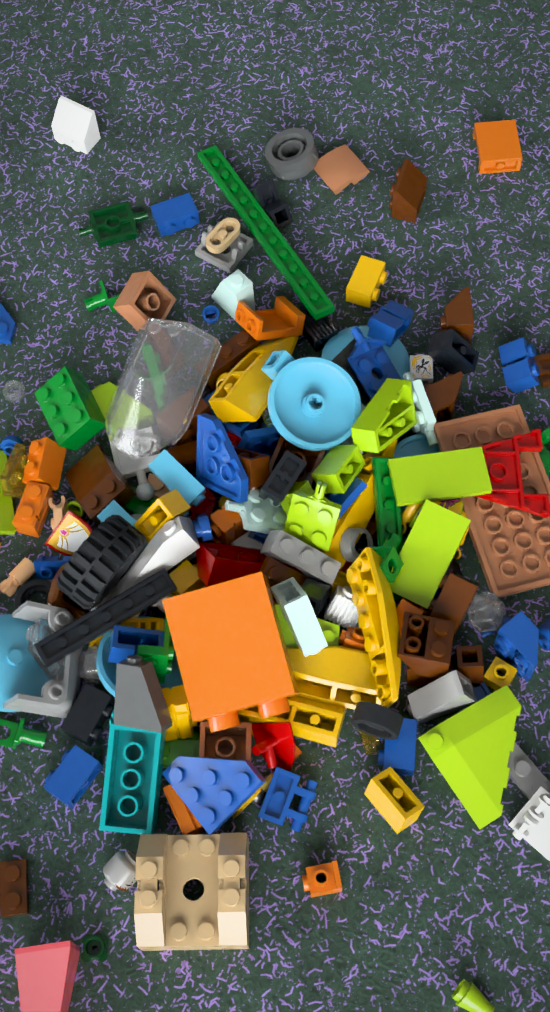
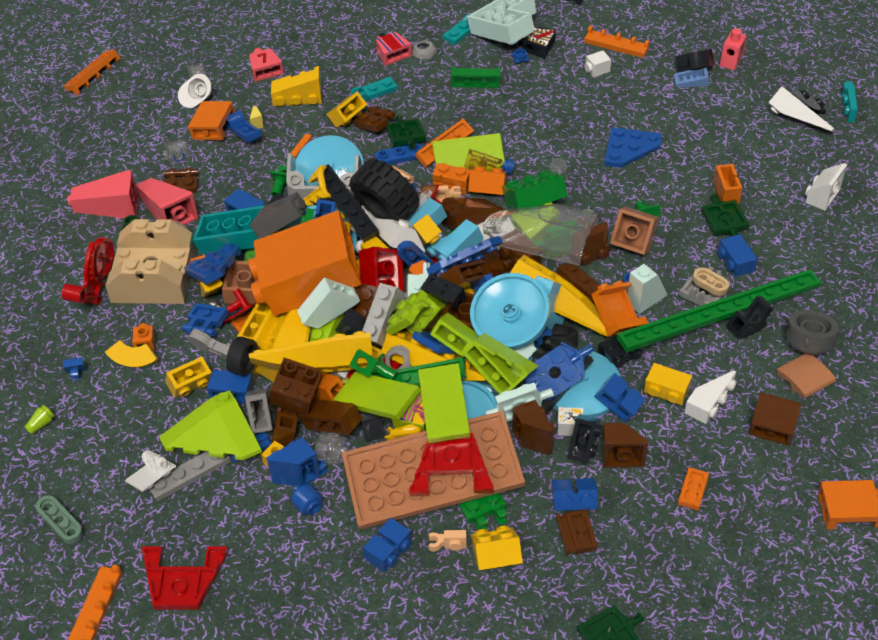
camera: 90 degrees right, 15 degrees down
(60, 221) = (727, 183): none -> orange piece
(61, 897) = (167, 201): none -> coral slope
(84, 660) = (321, 191): none -> yellow piece
(269, 981) = (90, 291): none -> red piece
(334, 781) = (206, 343): none -> light grey piece
(354, 892) = (131, 356): none -> yellow tile
(377, 245) = (706, 398): none -> white slope
(380, 968) = (74, 367): none -> blue tile
(492, 267) = (693, 488): none -> orange plate

